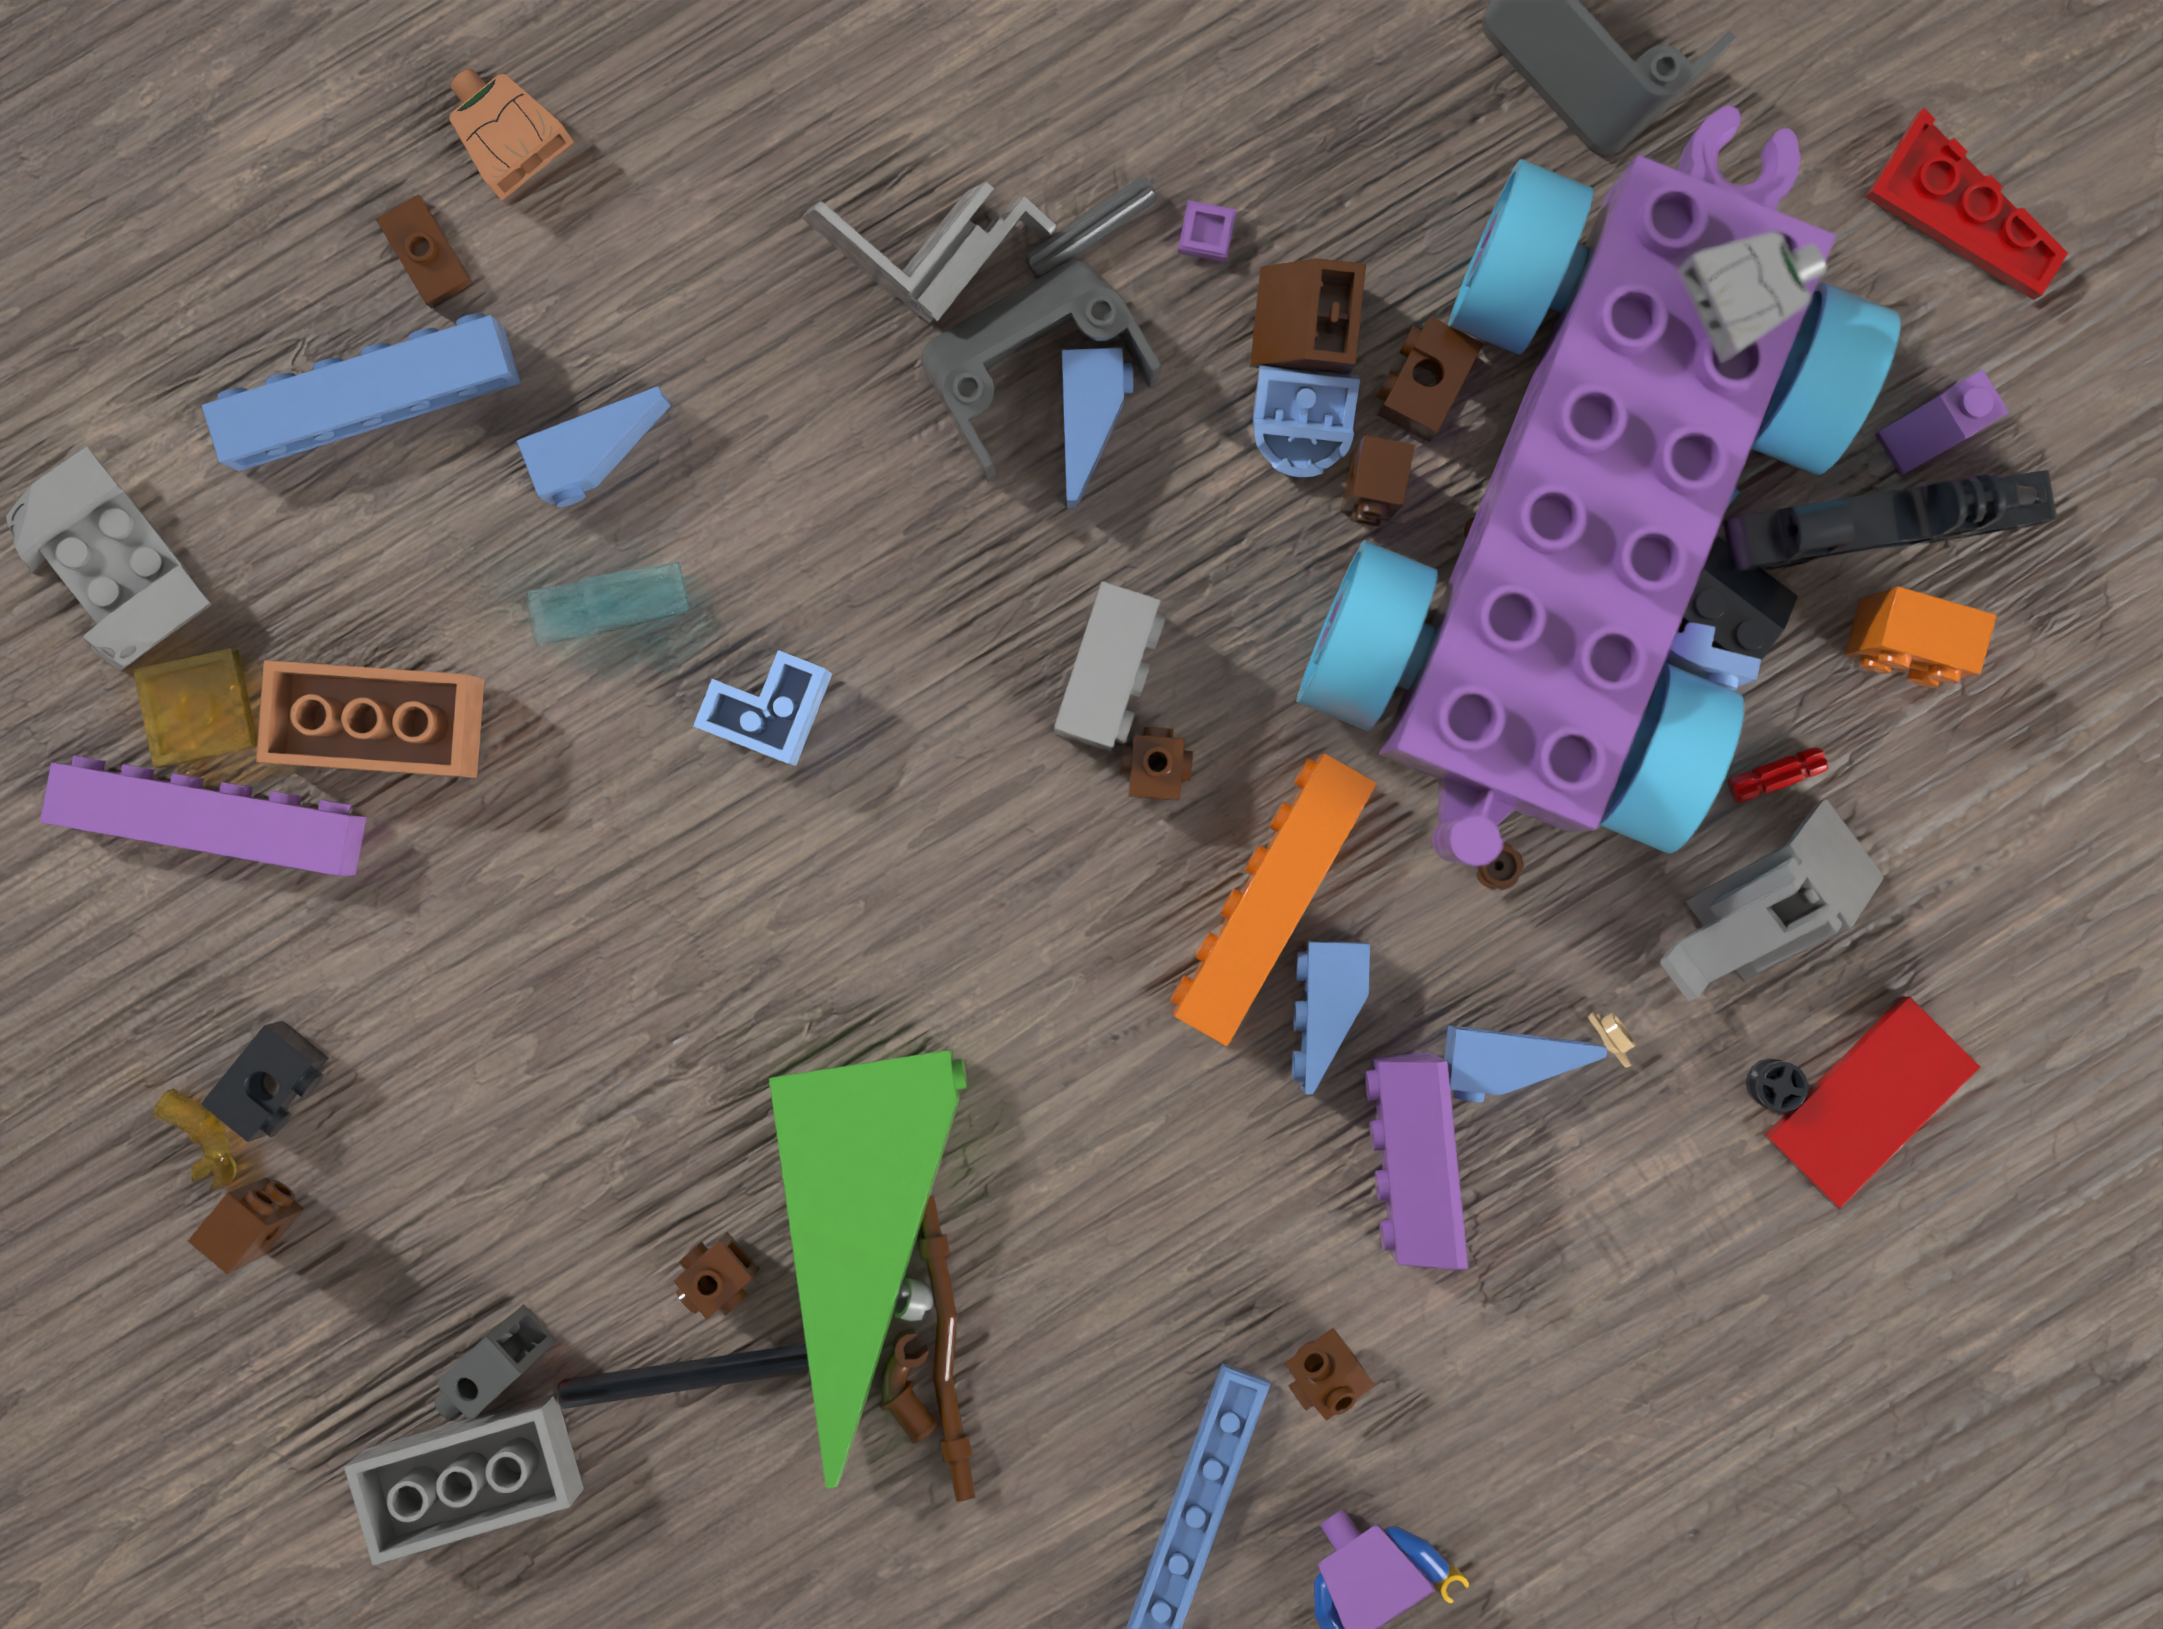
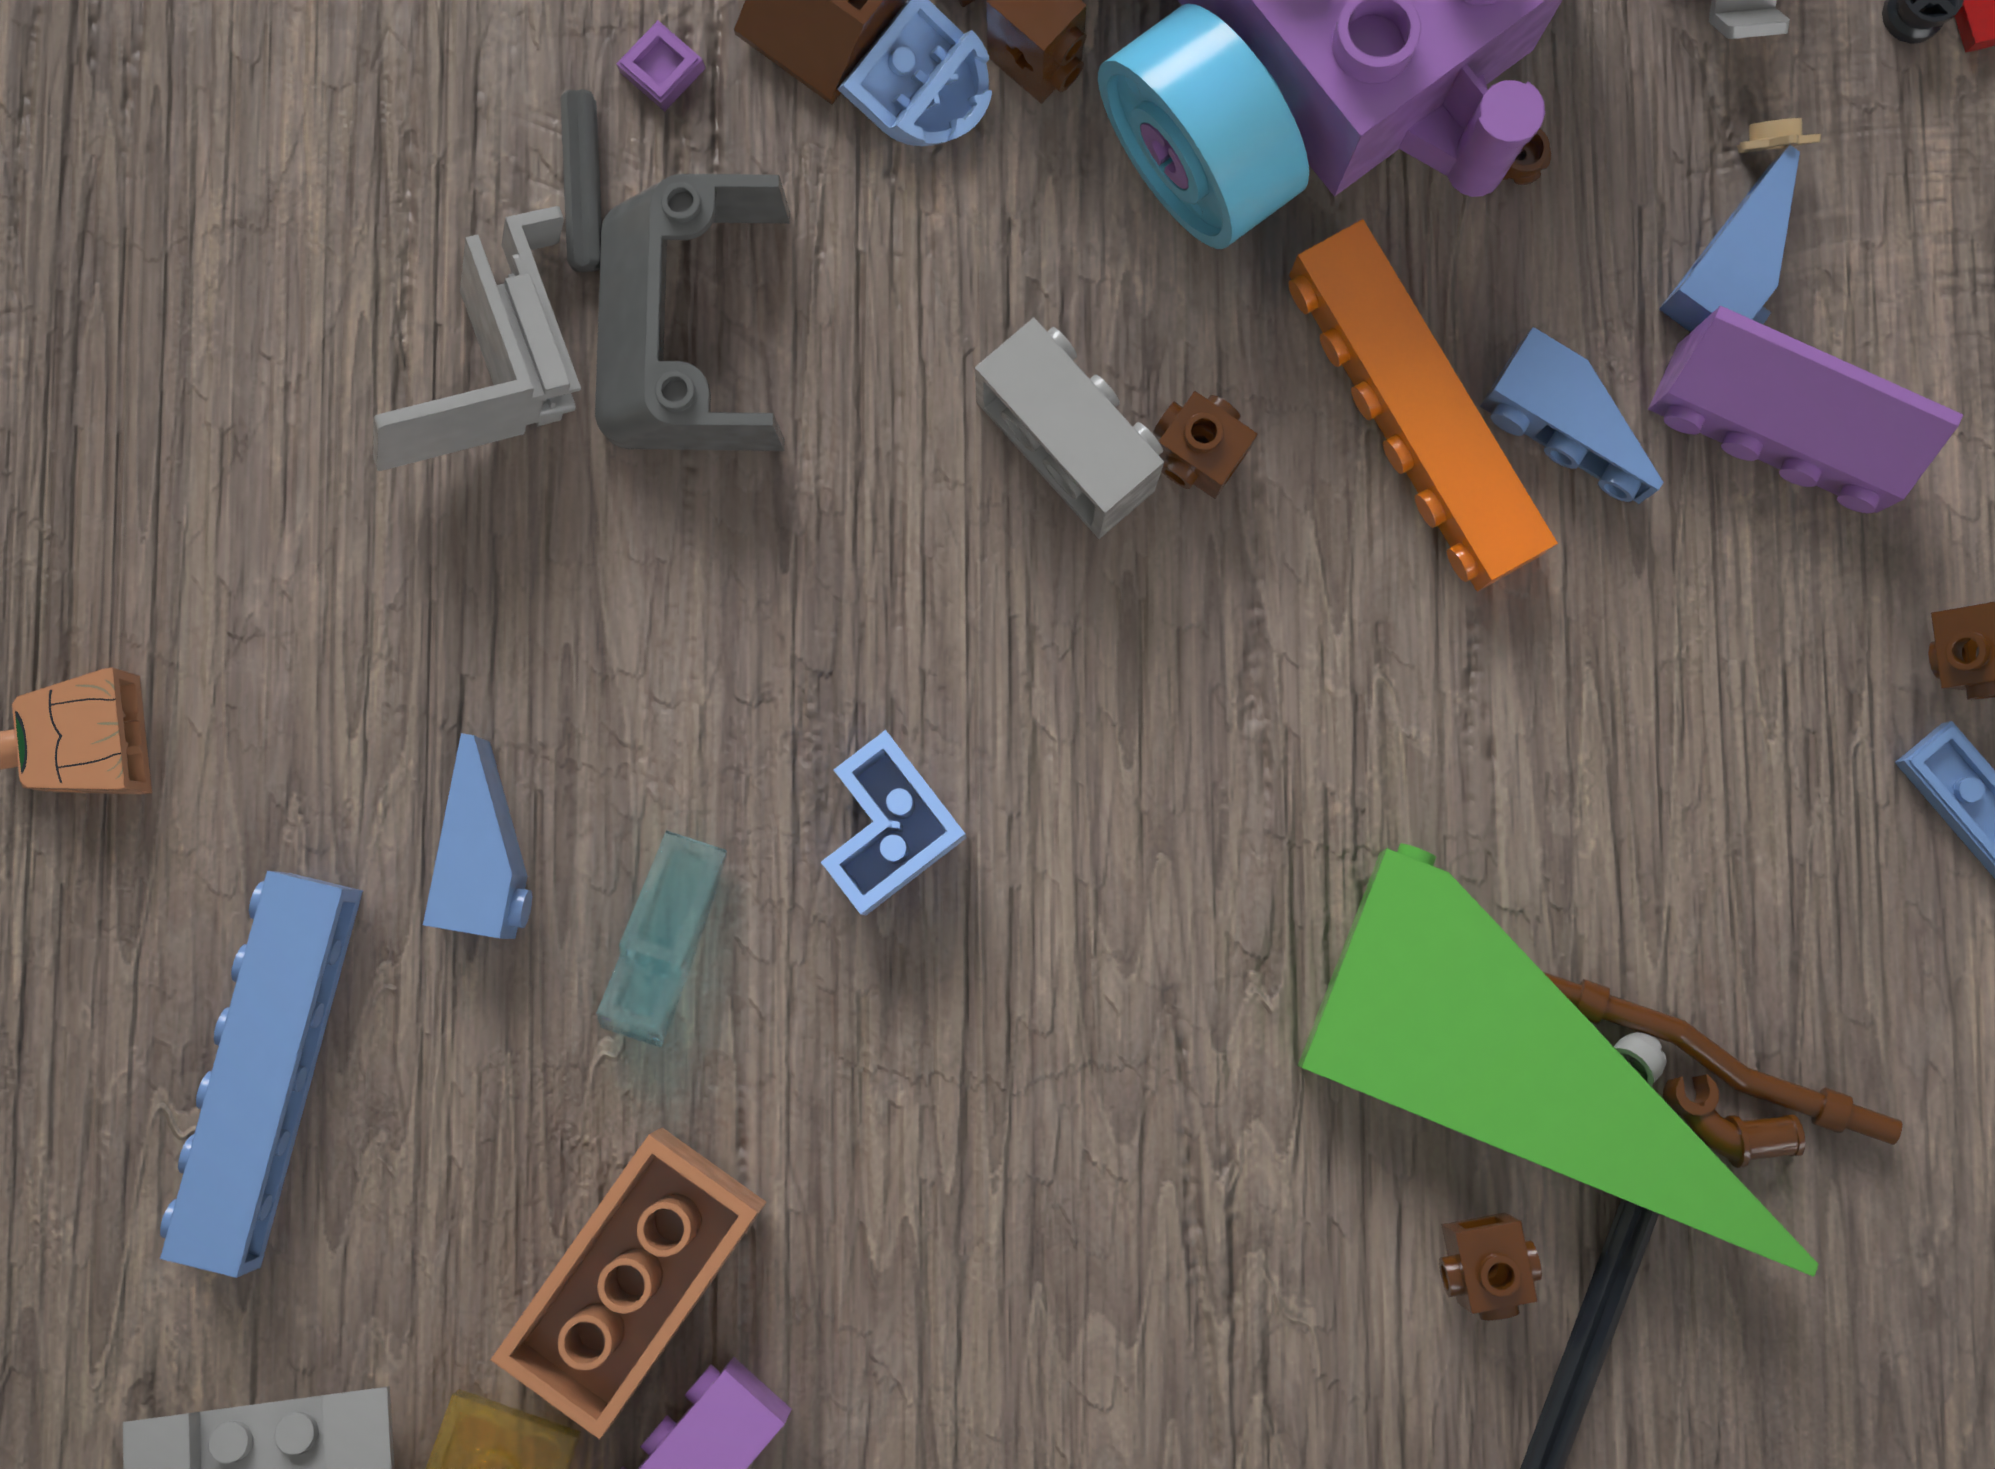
camera: 50 degrees left, 5 degrees down
(424, 251) = (151, 909): reddish brown plate -> none
(1092, 404) = (765, 284): medium blue slope -> none

